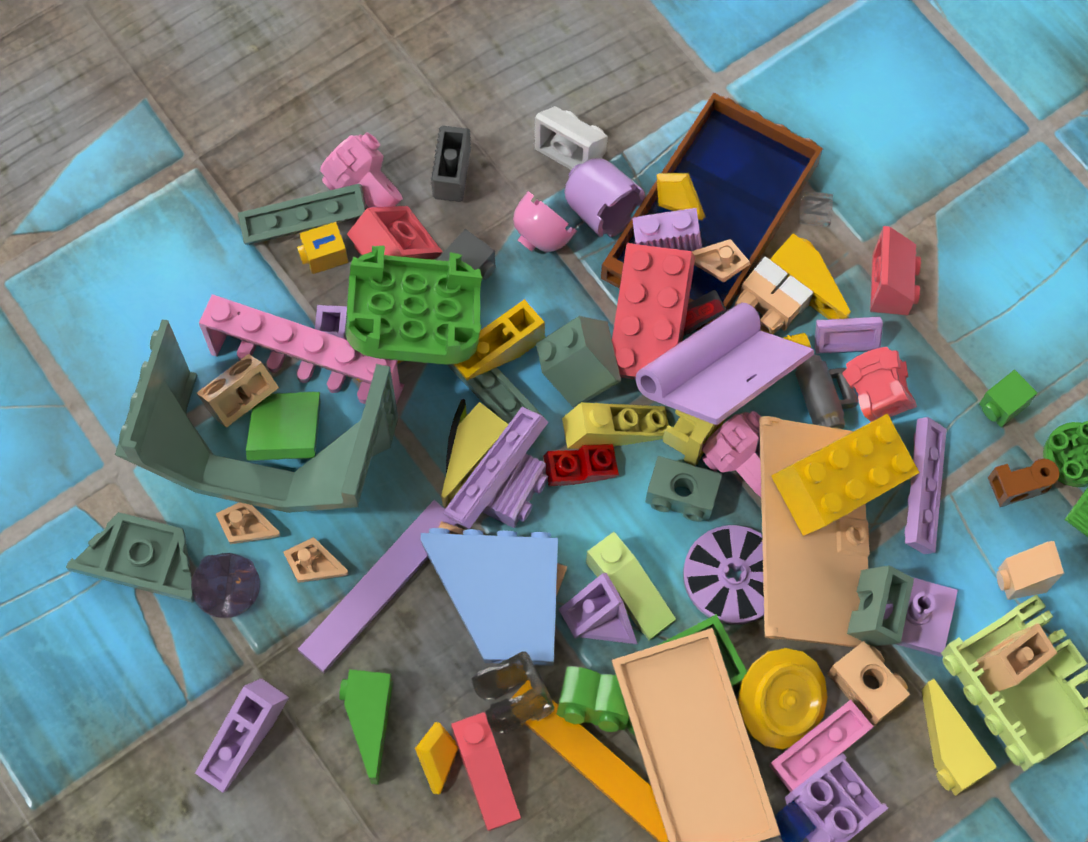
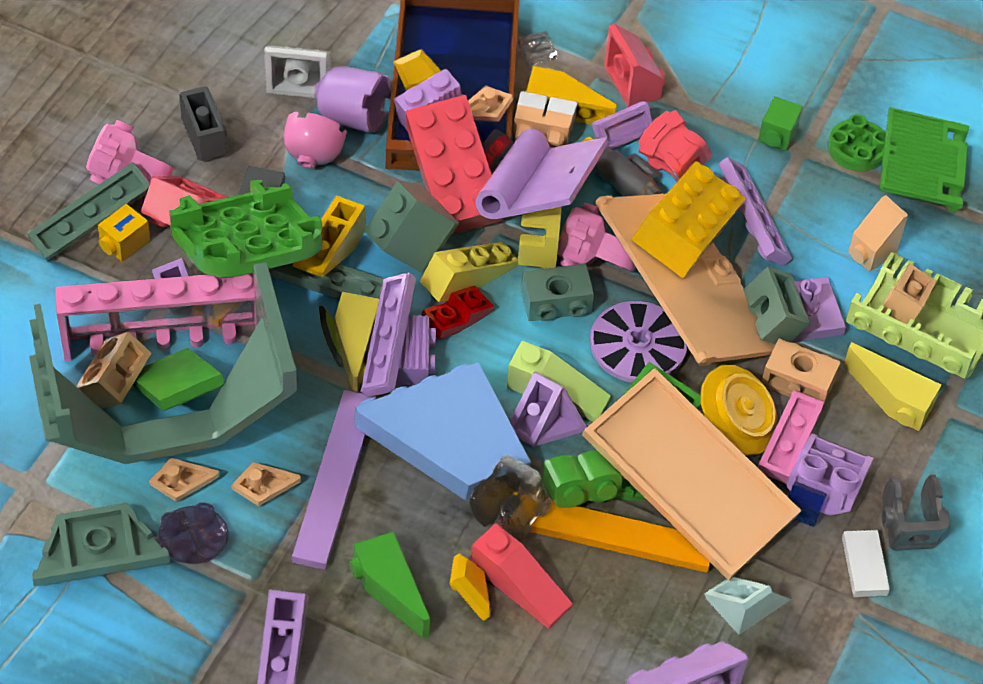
camera: 30 degrees left, 15 degrees down
(1023, 483) = (829, 180): dark orange leg -> none

